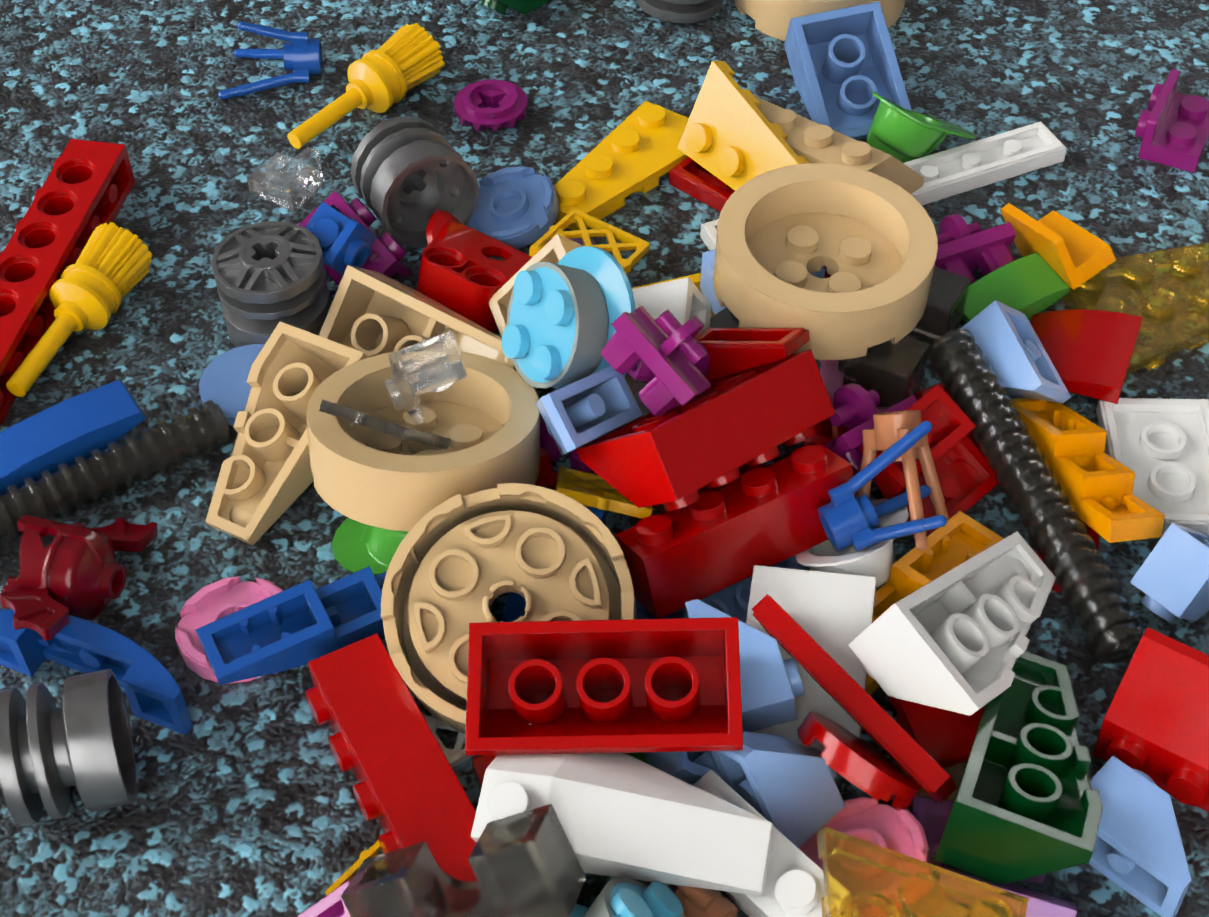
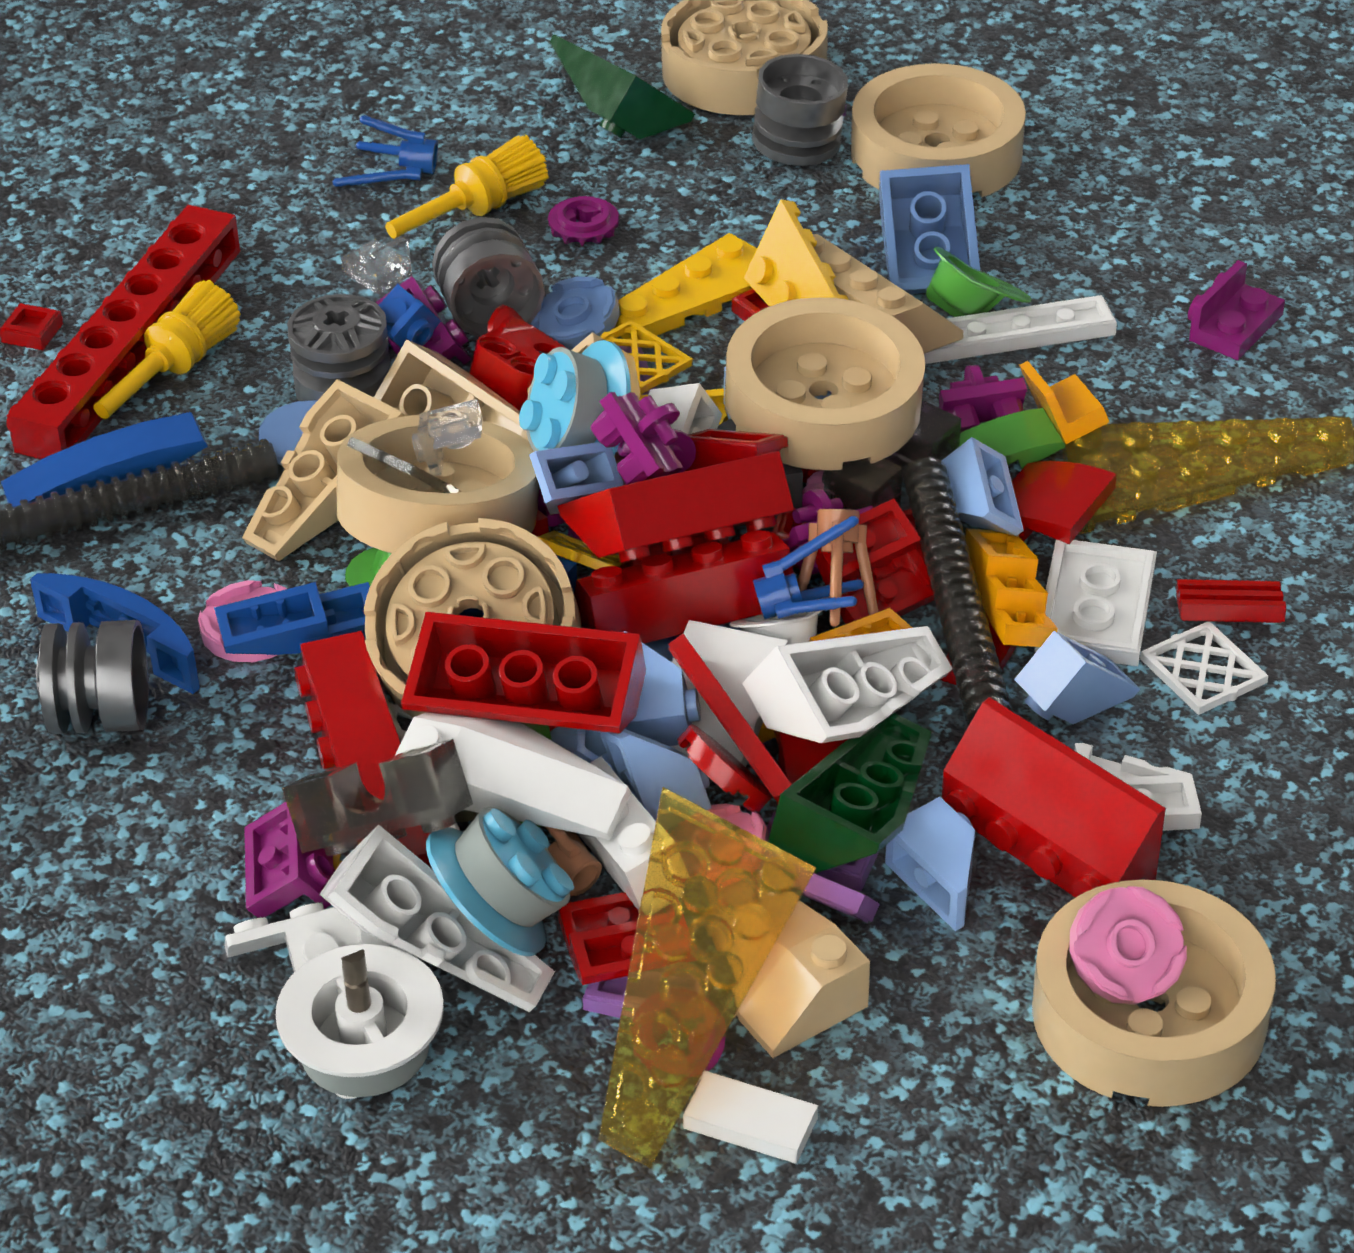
camera: 10 degrees right, 5 degrees down
(72, 574) = (123, 552): dark red helmet -> none

